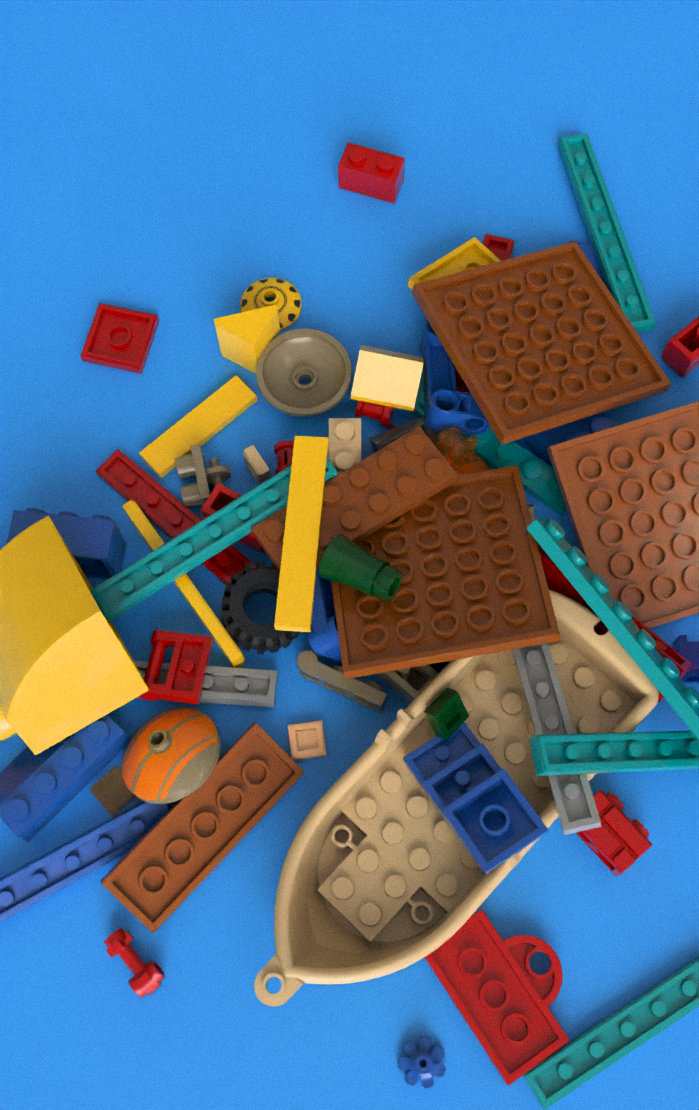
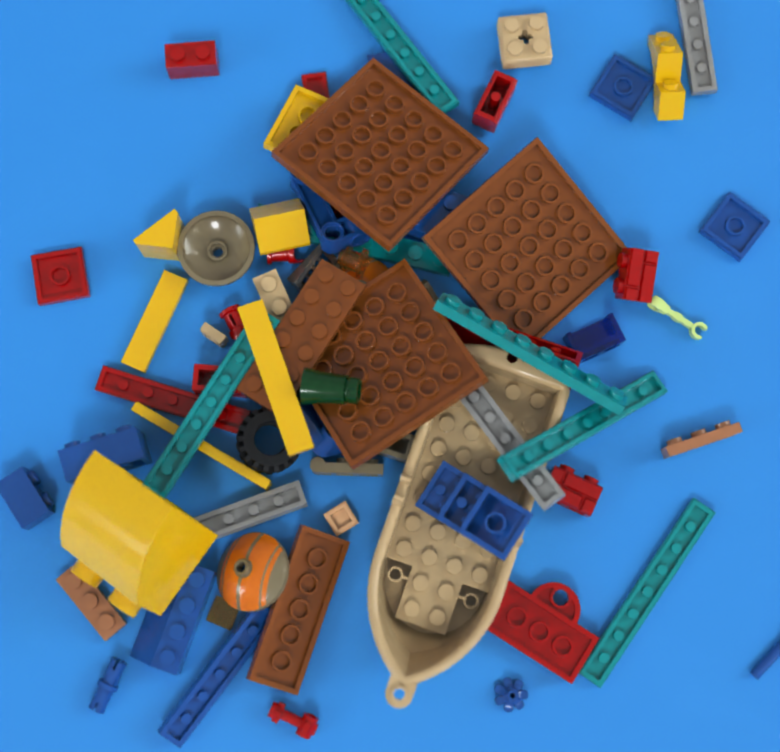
camera: 30 degrees left, 10 degrees up
(186, 668) = (235, 508): red plate -> none
(194, 464) = (167, 353): dark tan hips -> none
(286, 299) = (175, 198): yellow dish -> none
(446, 713) = (432, 462): dark green plate -> none

